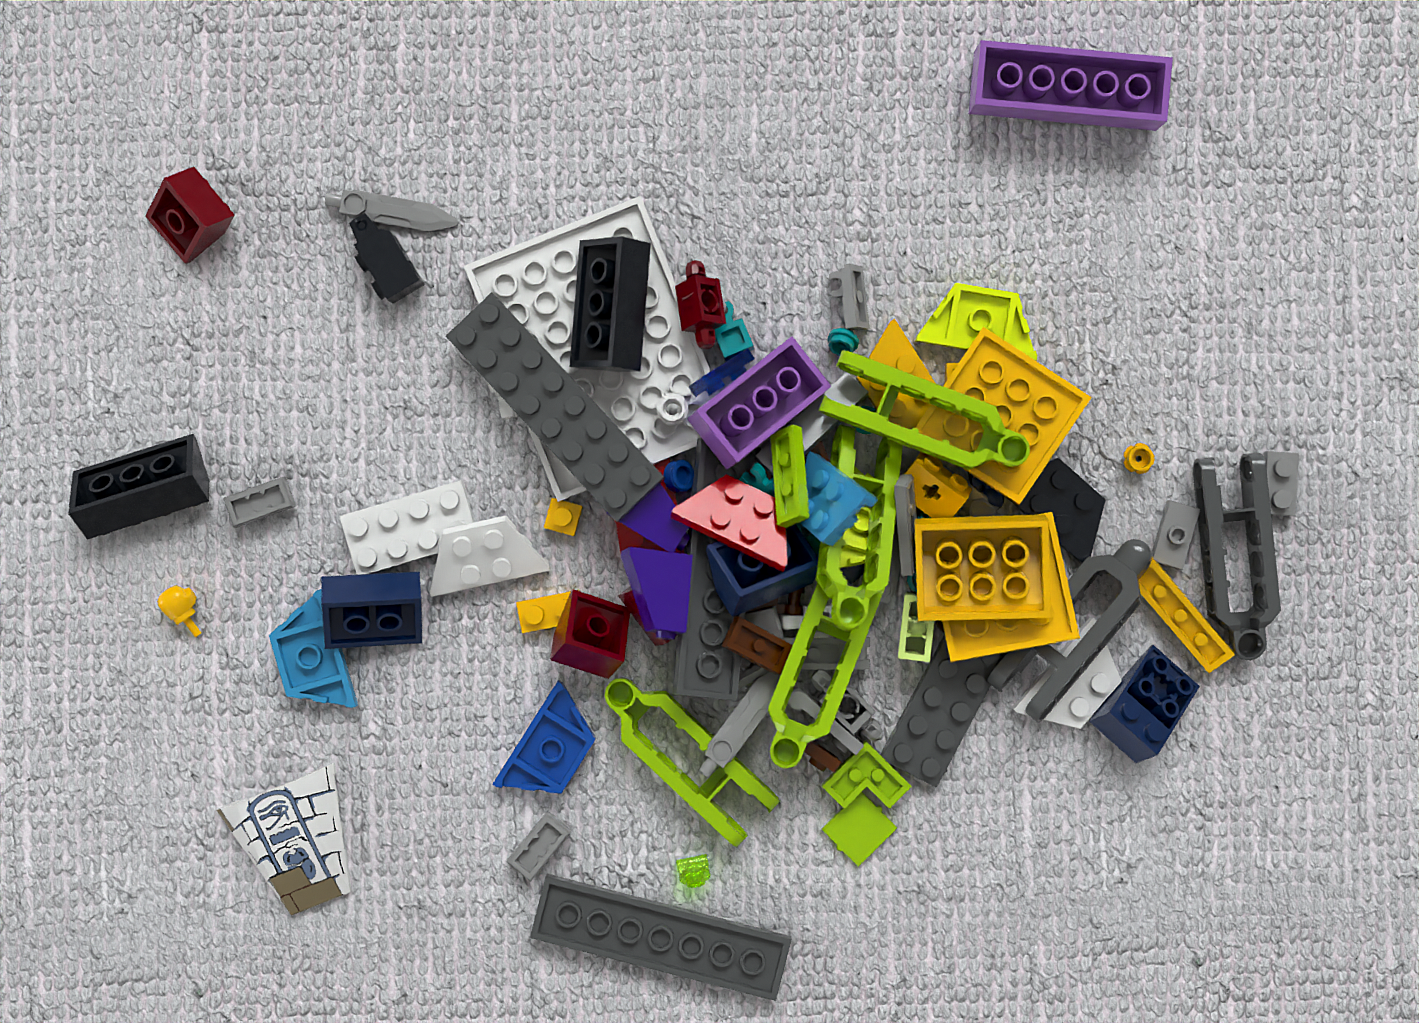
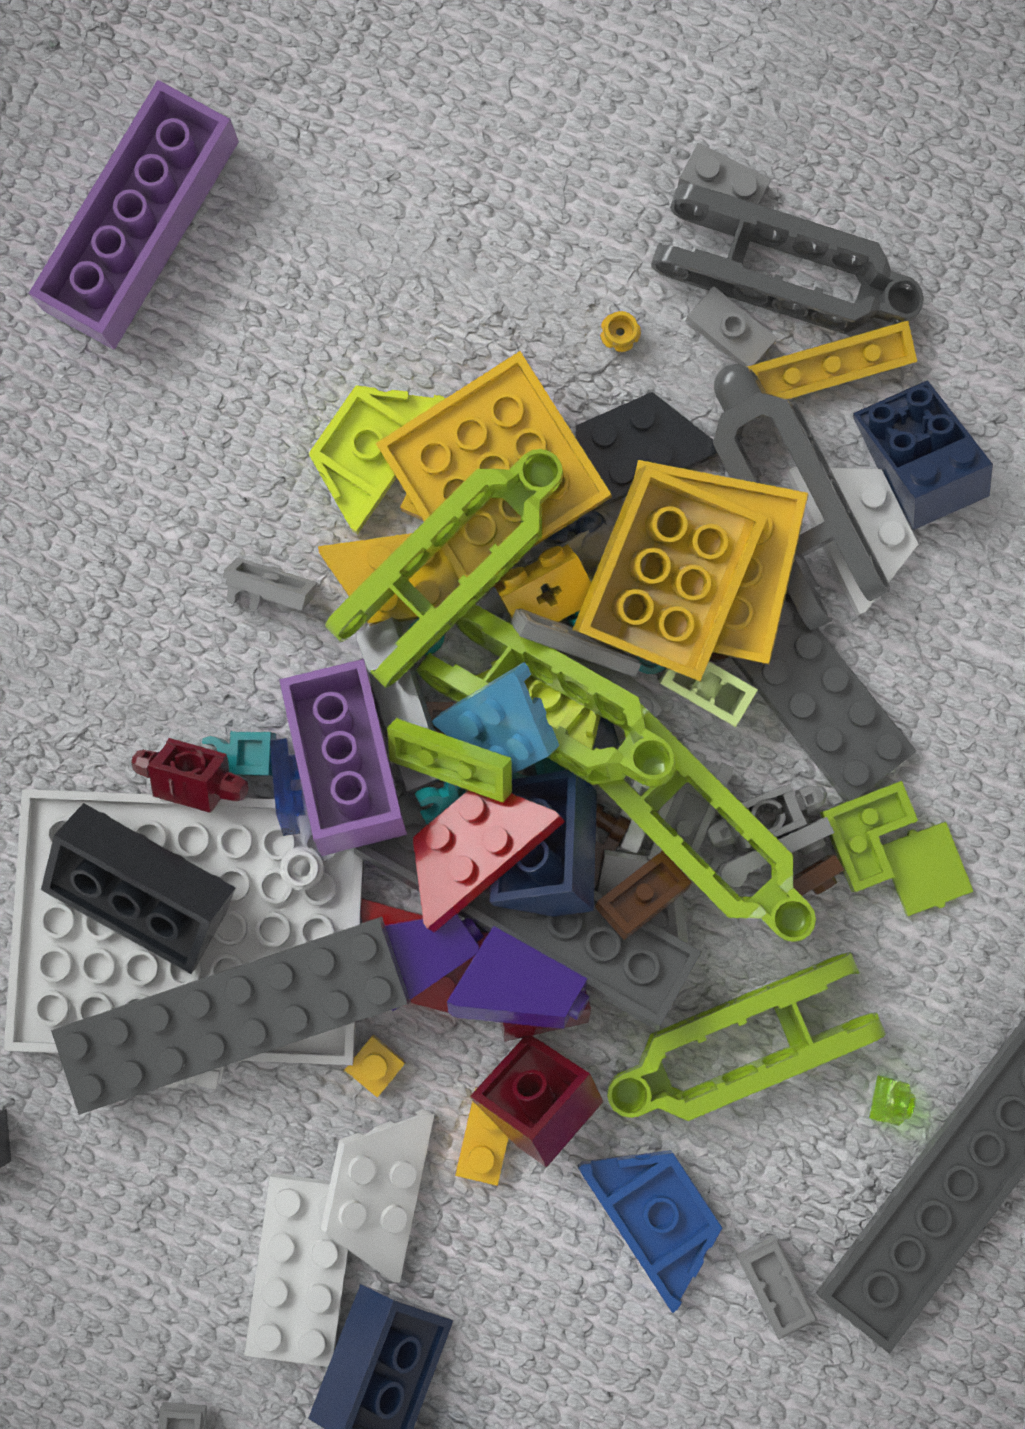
camera: 65 degrees left, 5 degrees down
(679, 476) = (389, 897): blue tile -> none
(740, 723) = (732, 960): light grey piece -> none
(842, 339) = (313, 620): teal plate -> none

